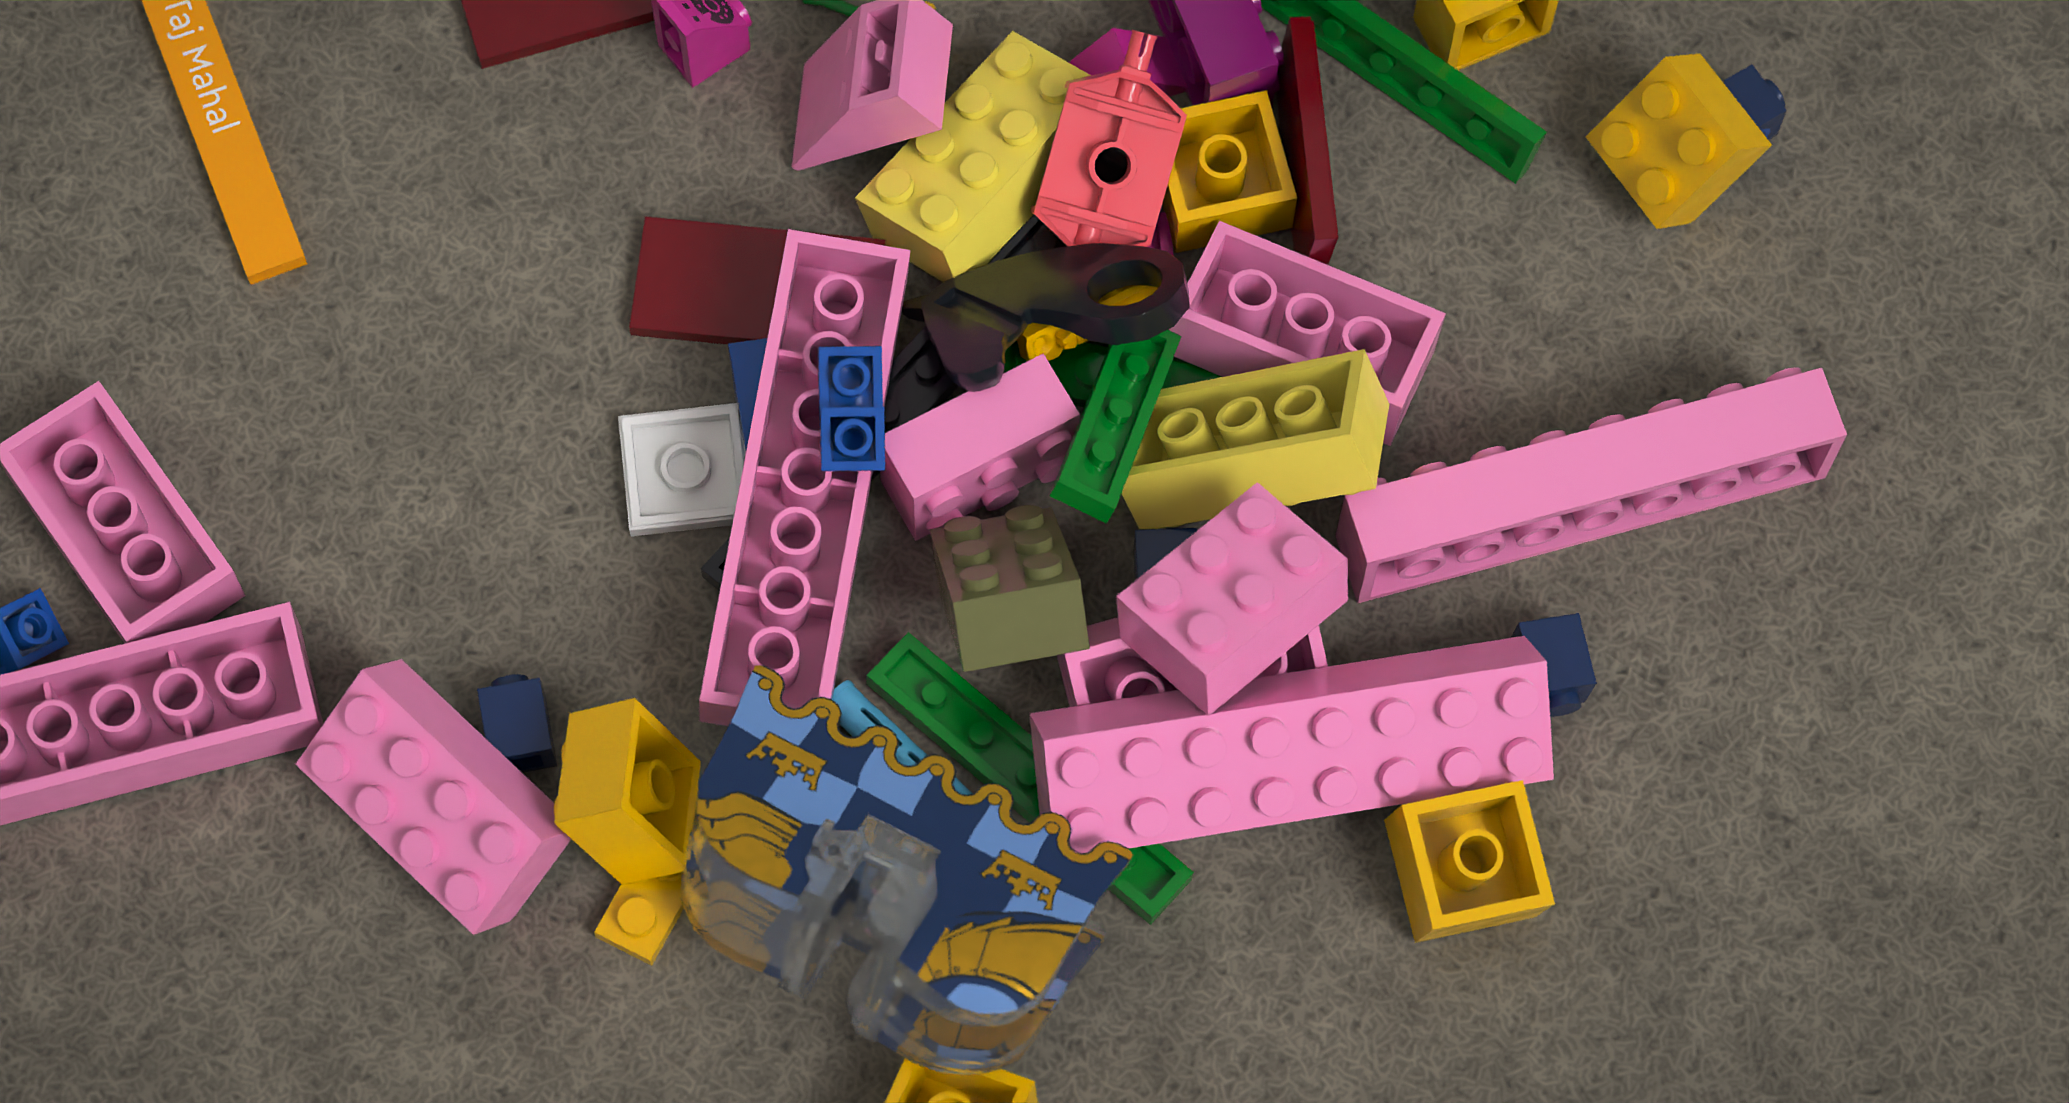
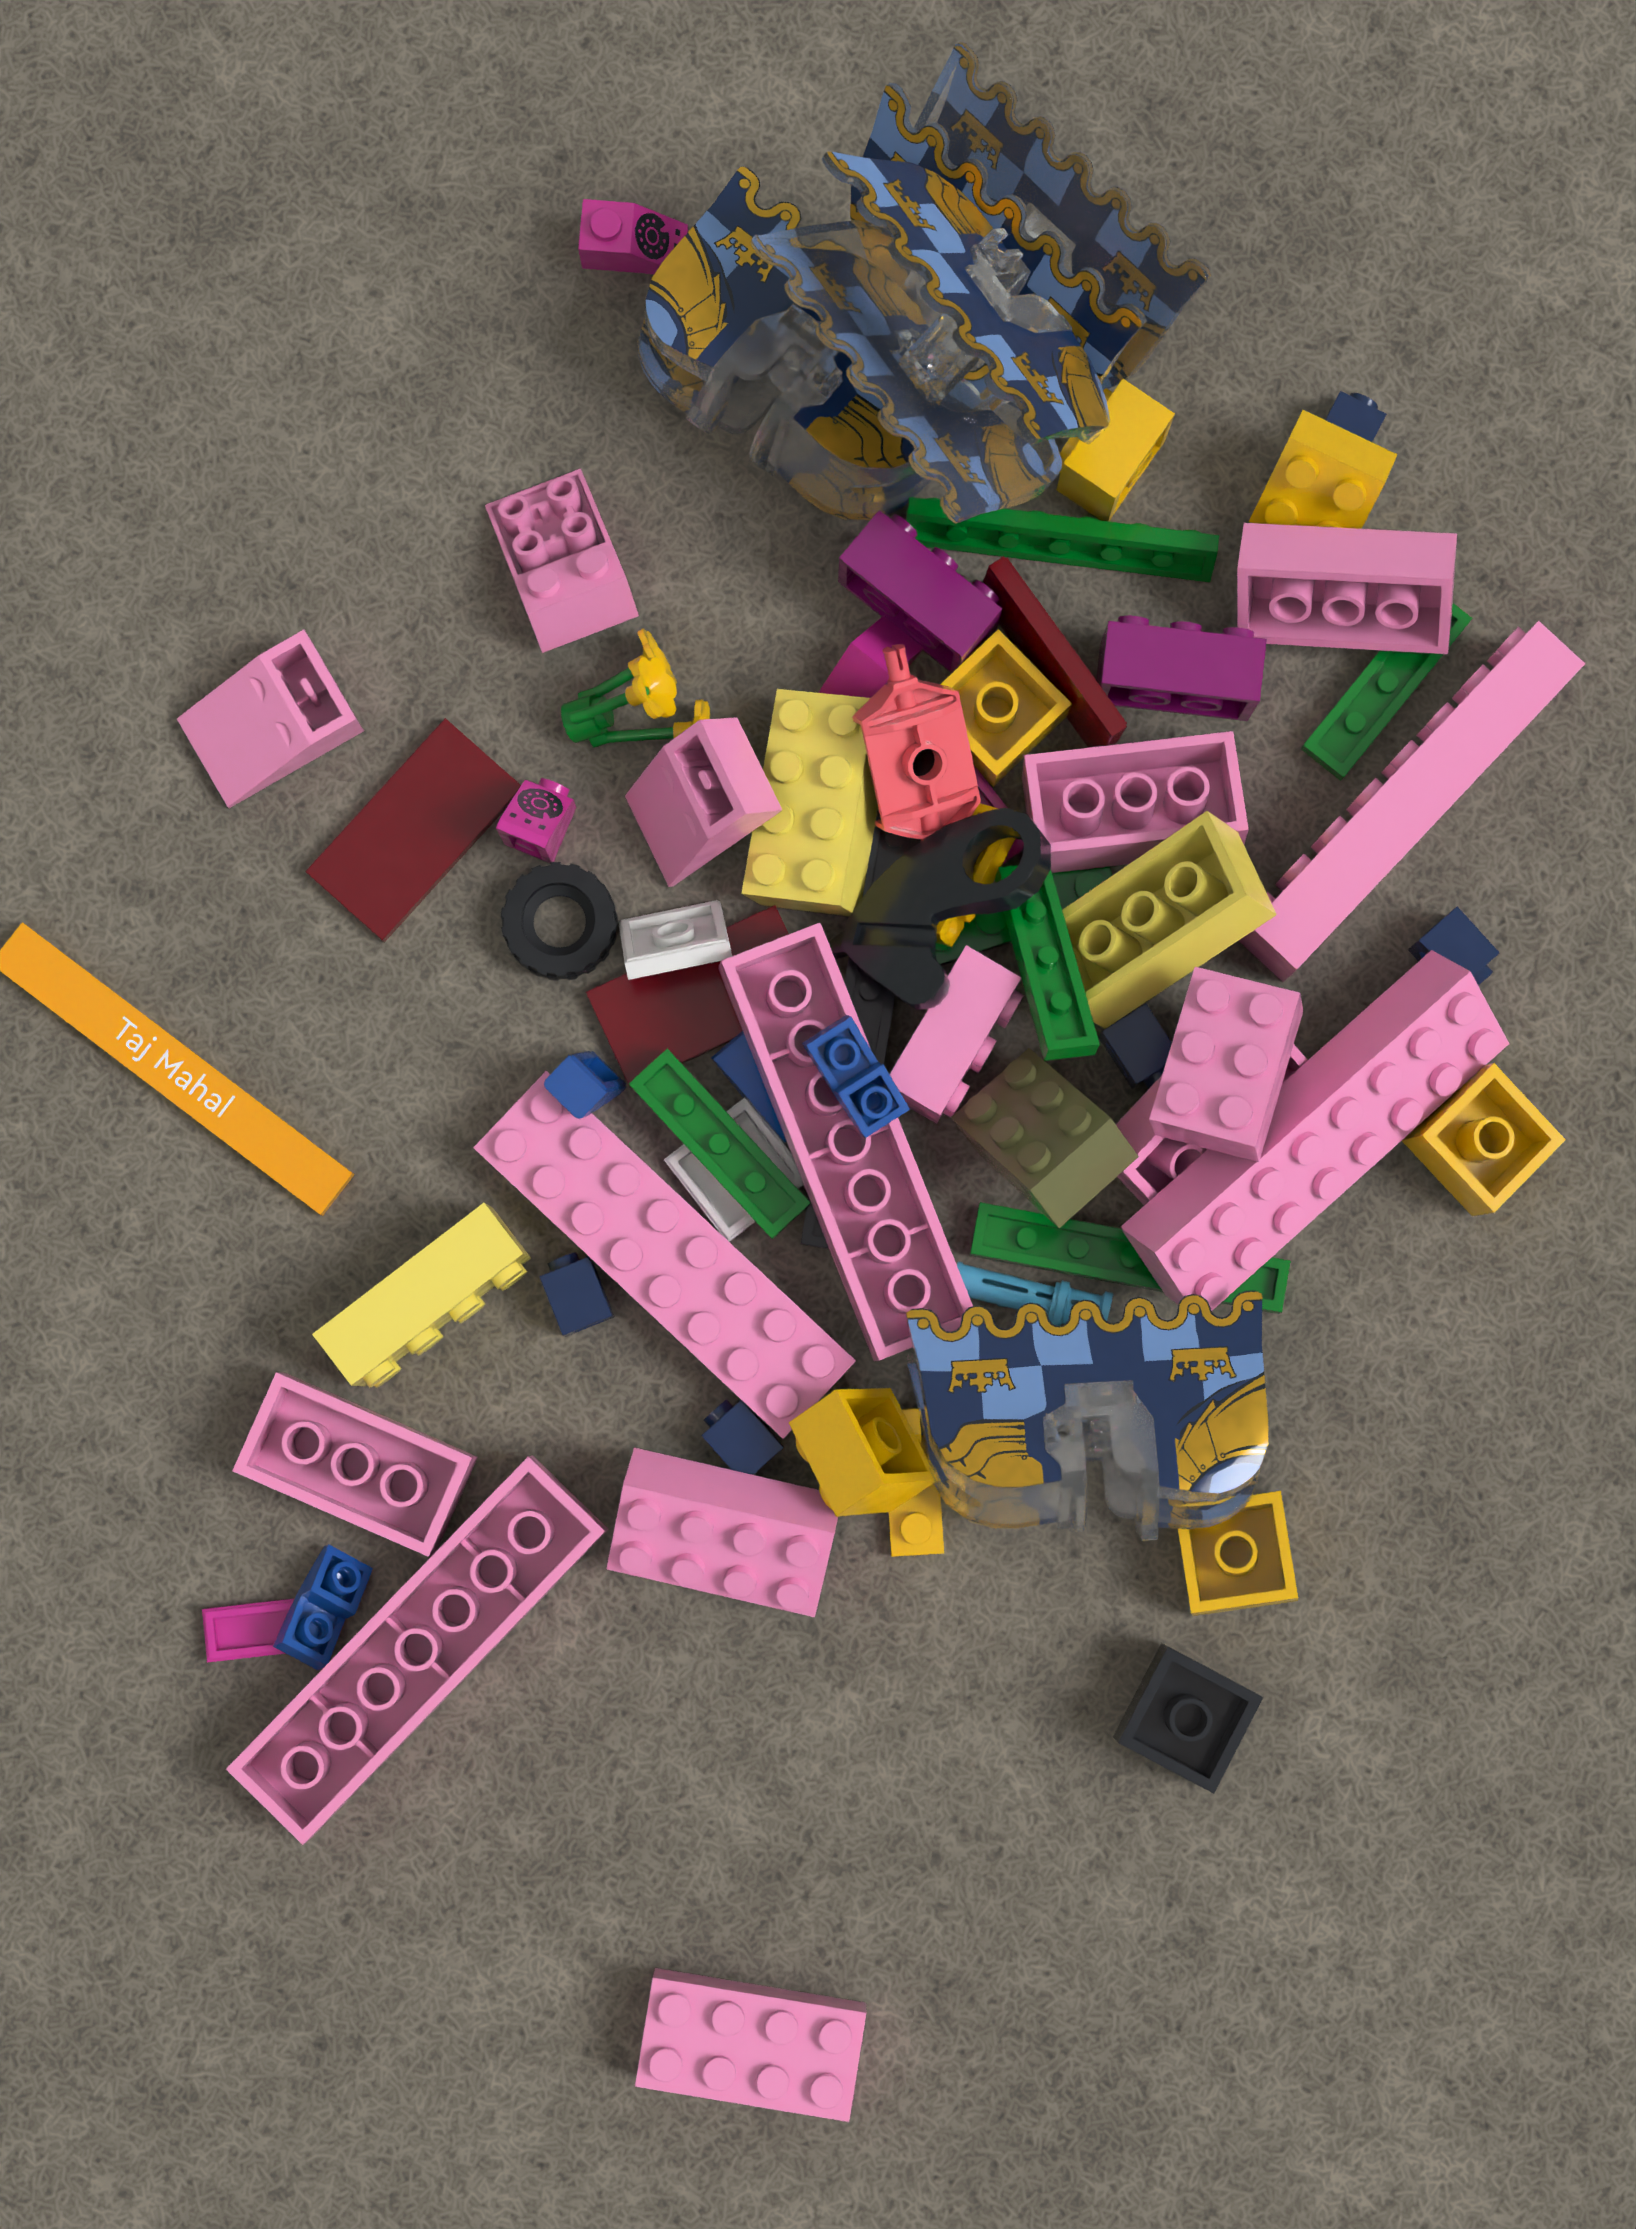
camera: 30 degrees left, 15 degrees up
(291, 398) = (422, 1297): none -> light yellow brick
(445, 492) = (576, 1294): none -> dark blue brick
(556, 492) = (666, 1256): none -> bright pink brick
(583, 286) = (584, 1083): none -> blue slope
(653, 94) = (552, 882): none -> black tyre
(681, 425) = (719, 1143): none -> green plate
(760, 205) = (674, 939): none -> white tile
(1428, 231) = (1181, 668): none -> magenta brick
(1638, 370) = (1372, 703): none -> green plate
(1643, 240) = (1346, 587): none -> bright pink brick

